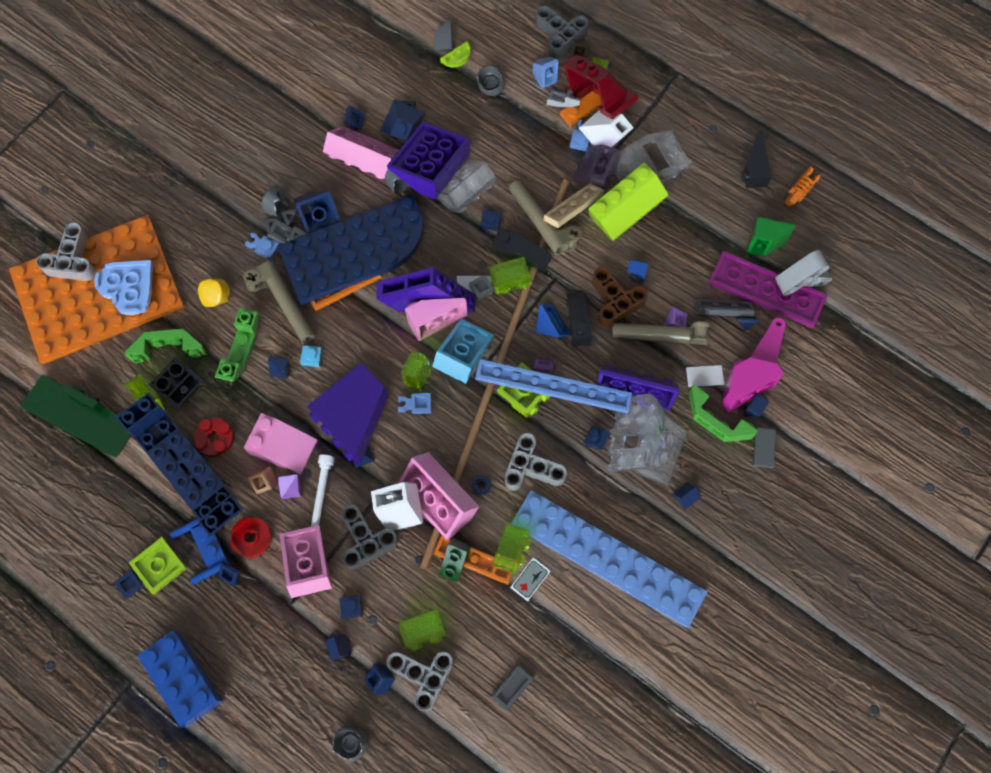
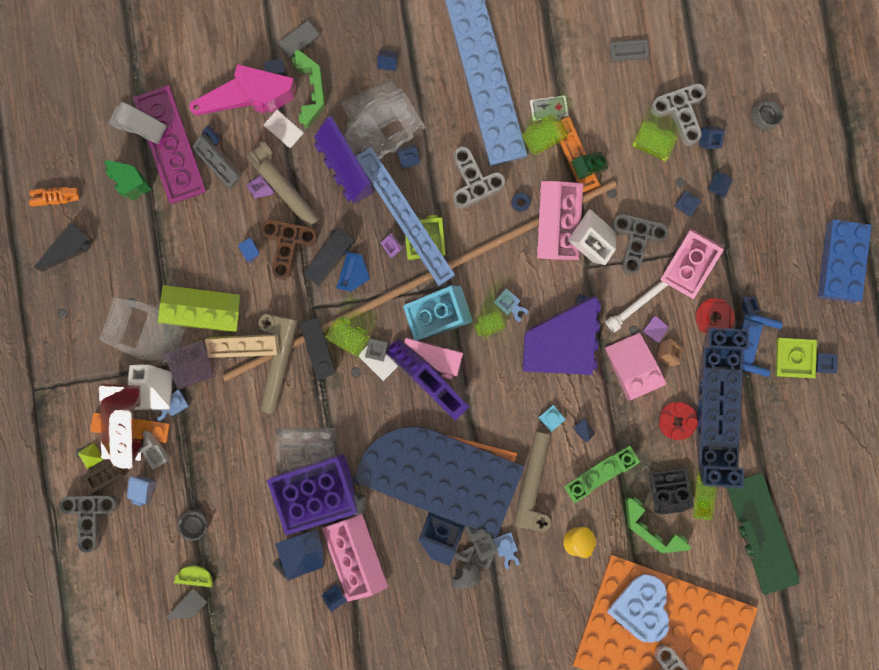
camera: 140 degrees left, 15 degrees up
(490, 220) = (313, 401): dark blue plate -> none

